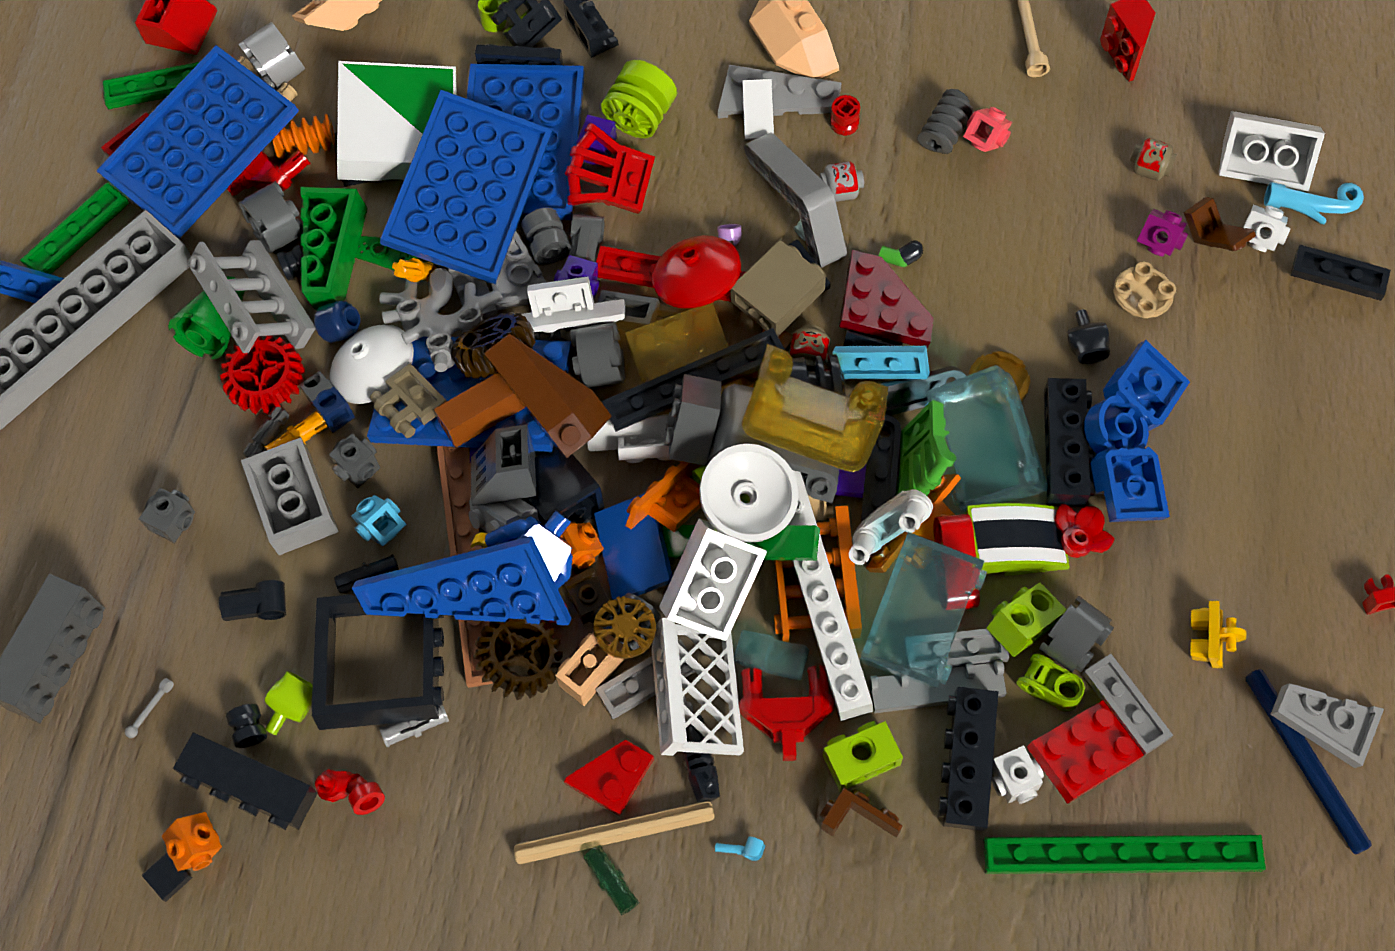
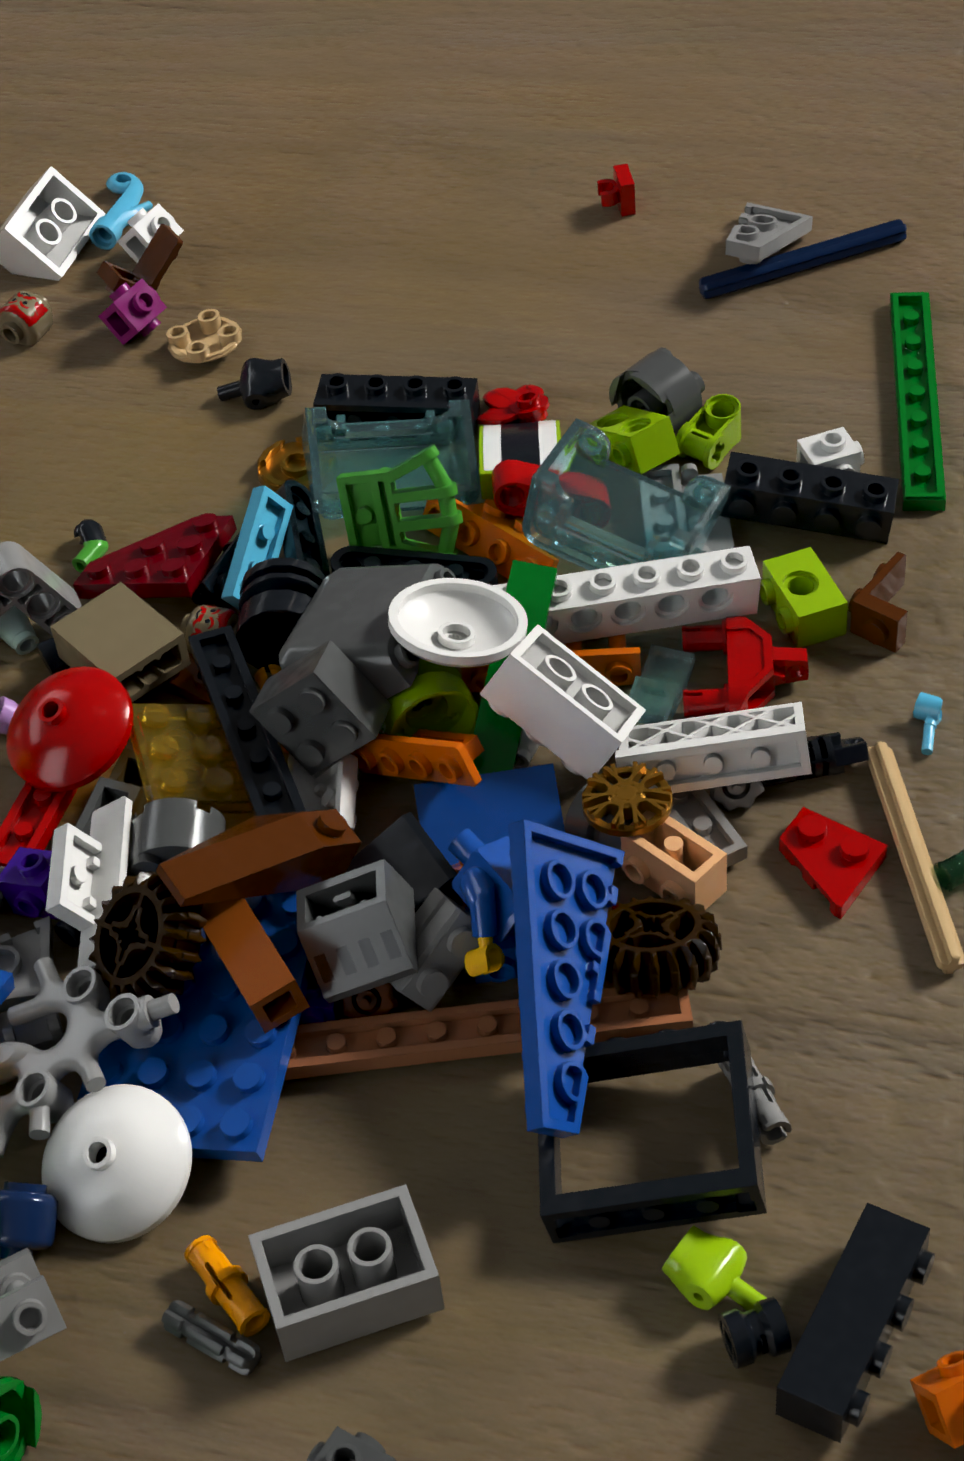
camera: 85 degrees left, 20 degrees down
(264, 601) = (531, 1326): black piece -> none
(276, 381) = (118, 1356): red gear -> none
(327, 401) = (161, 1236): dark blue leg -> none
(337, 785) = (867, 1156): red arm -> none
(345, 581) = (494, 1168): black axle -> none
(354, 460) = (292, 1180): dark grey brick -> none
(378, 519) = (407, 1139): medium azure brick -> none
(414, 393) = (203, 1063): dark tan plate -> none
(812, 418) = (358, 557): clear yellow windscreen -> none
(888, 521) = (490, 525): white connector -> none
(1085, 751) = (800, 405): red plate -> none
(1118, 430) = (372, 344): blue plate -> none
(1127, 704) = (750, 373): light grey plate -> none
(1212, 649) = (657, 304): yellow hips -> none
(1340, 272) = (220, 194): black plate -> none

